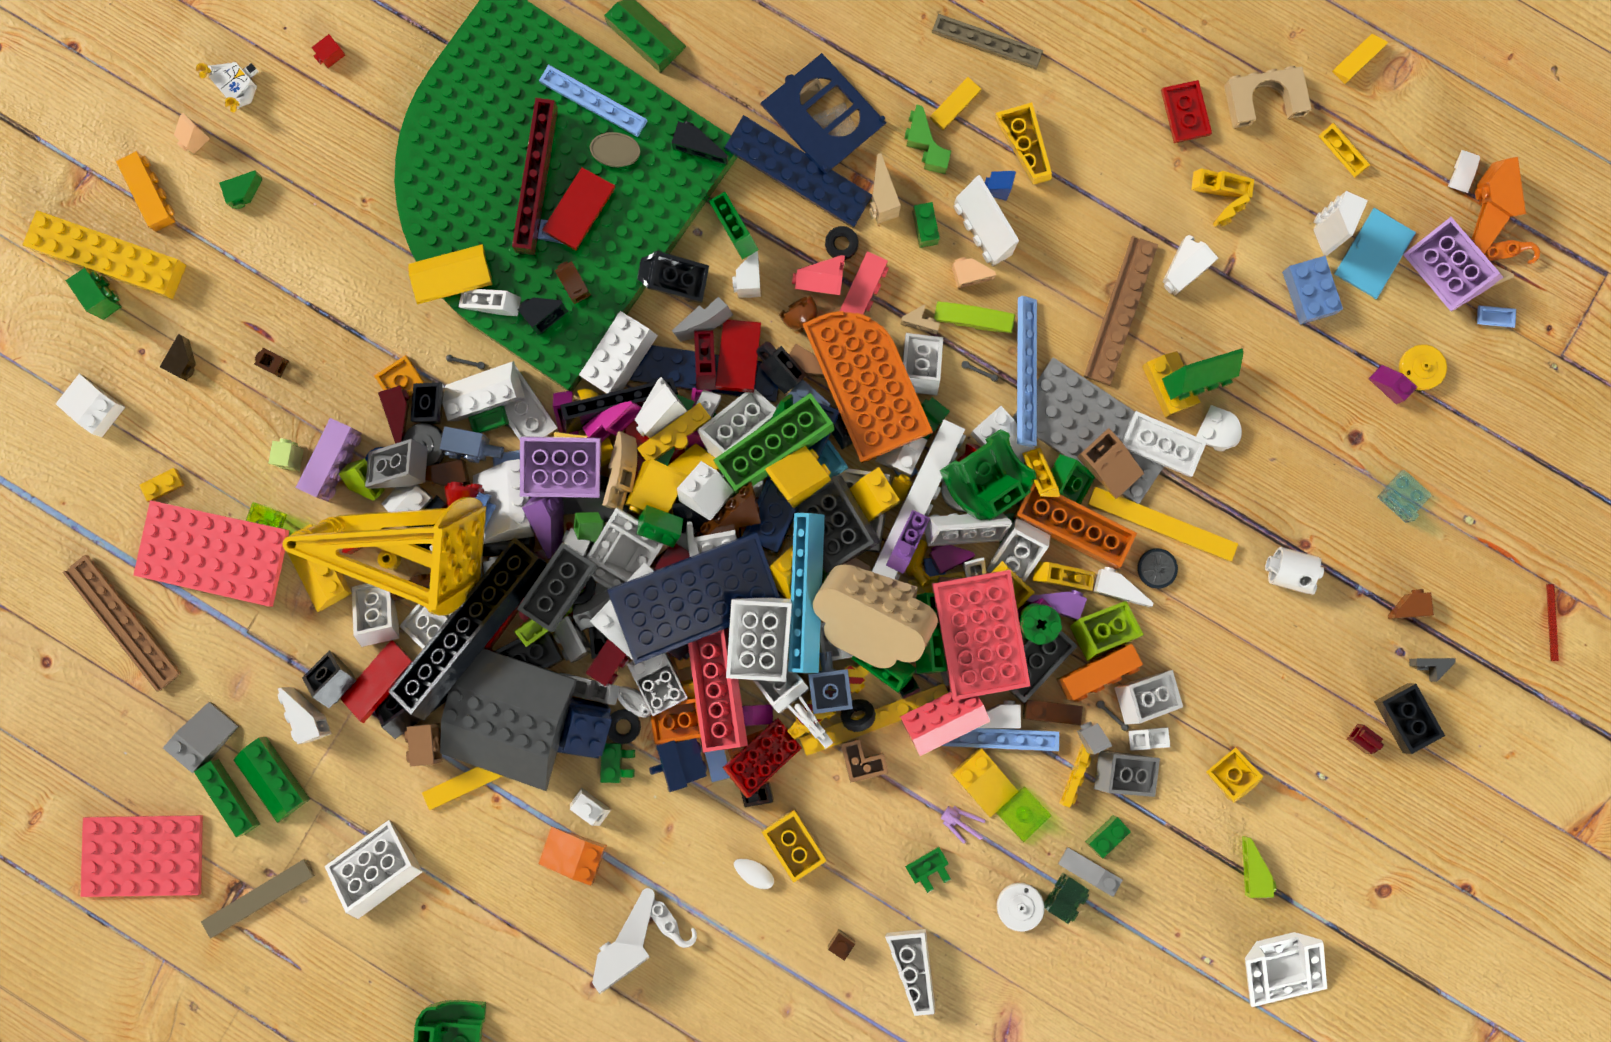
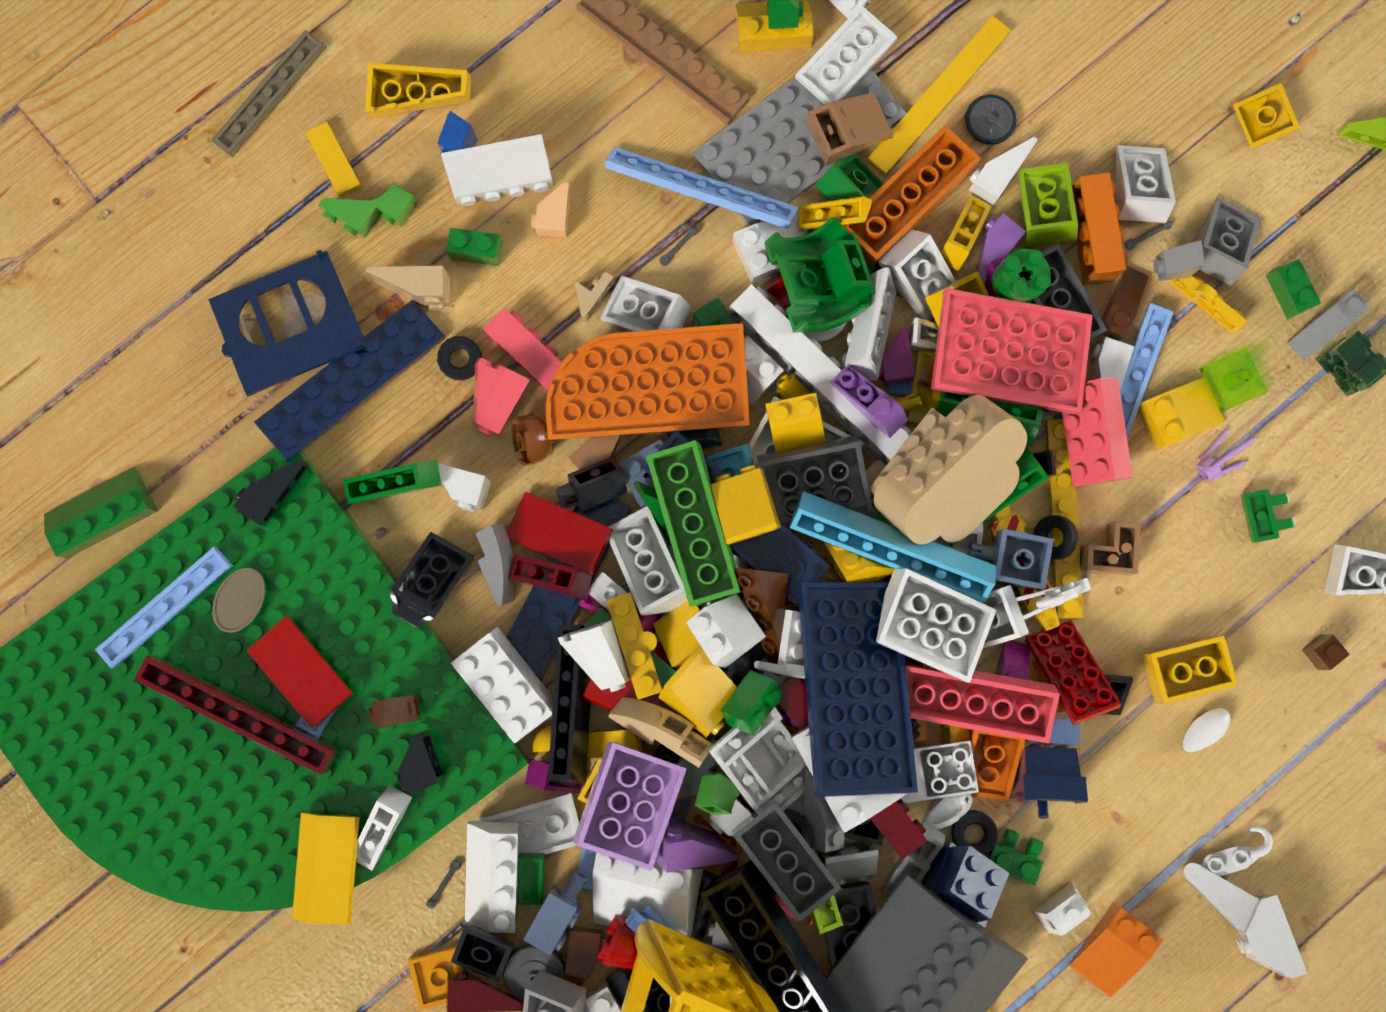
camera: 75 degrees left, 0 degrees up
(612, 420) = (590, 720): dark pink slope -> none
(975, 317) = (610, 228): lime slope -> none
(1020, 907) = (1344, 421): white wheel -> none
(1149, 738) = (1190, 200): white slope -> none

